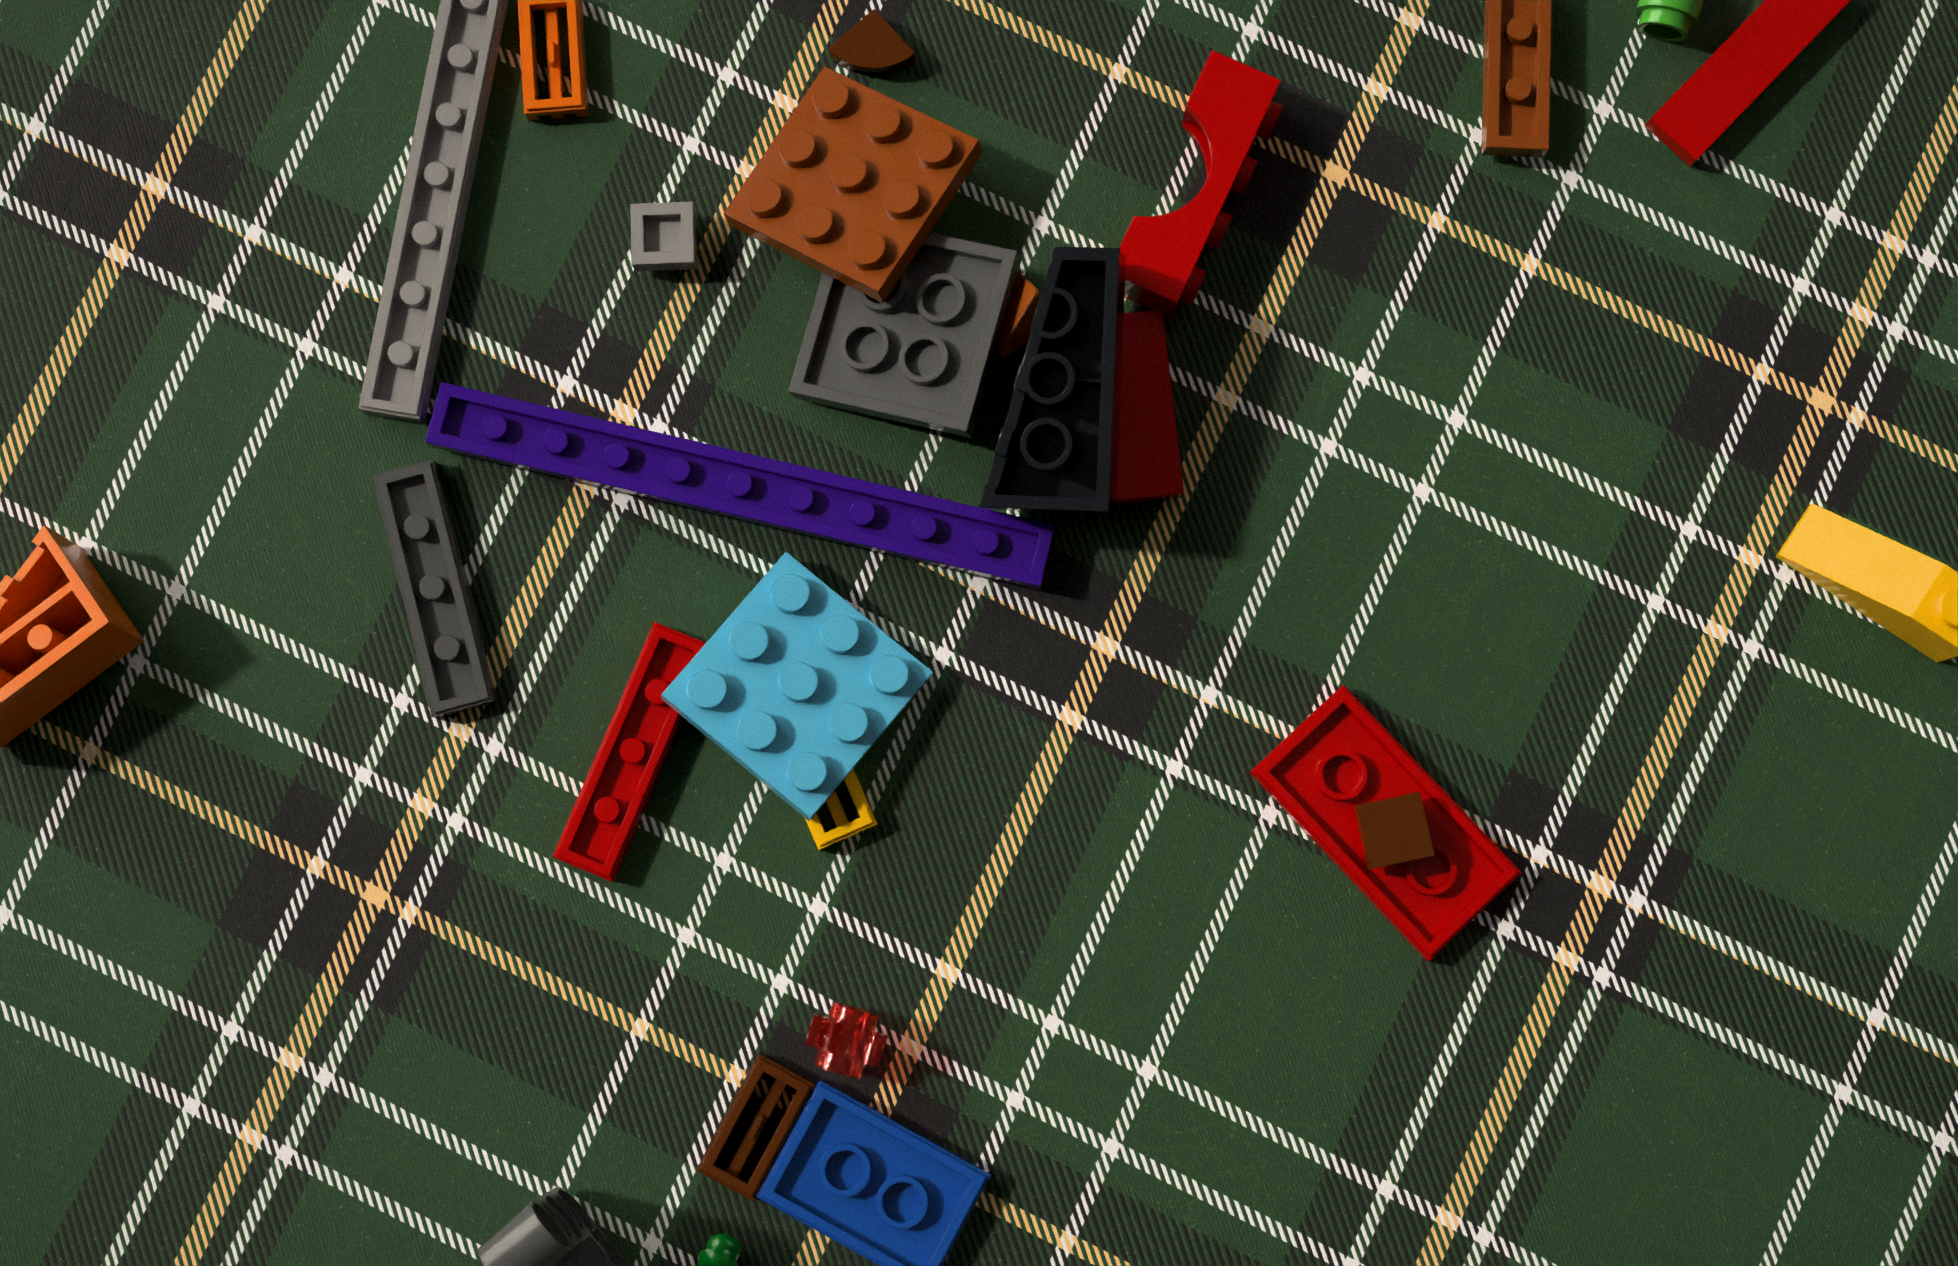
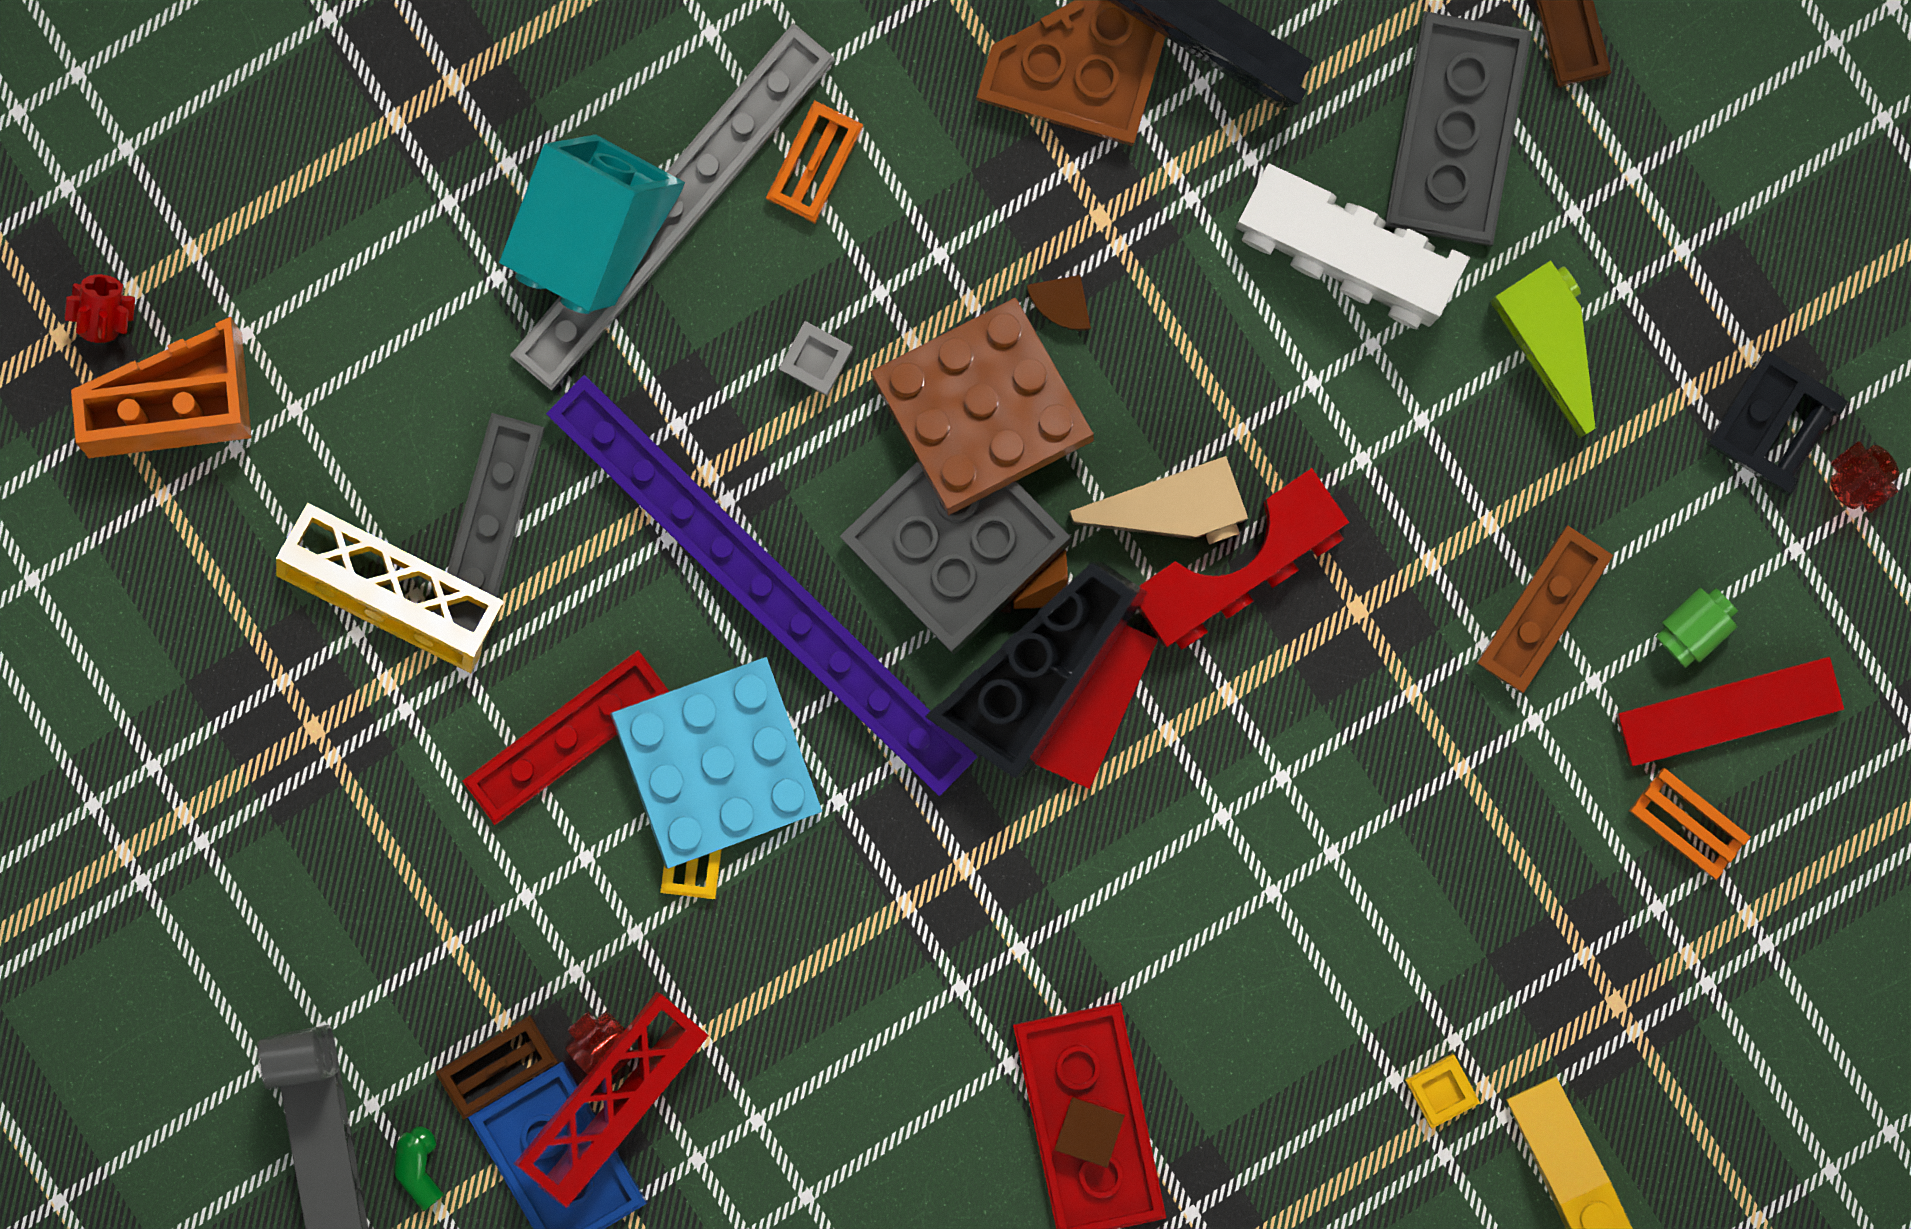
camera: 30 degrees right, 5 degrees up
(354, 230) = (587, 221): none -> teal slope
(363, 730) = (378, 605): none -> fence
(907, 1090) = (621, 1107): none -> red fence
(1100, 172) = (1180, 506): none -> tan slope
(1711, 584) = (1442, 1091): none -> yellow tile
(1836, 189) = (1726, 852): none -> orange tile

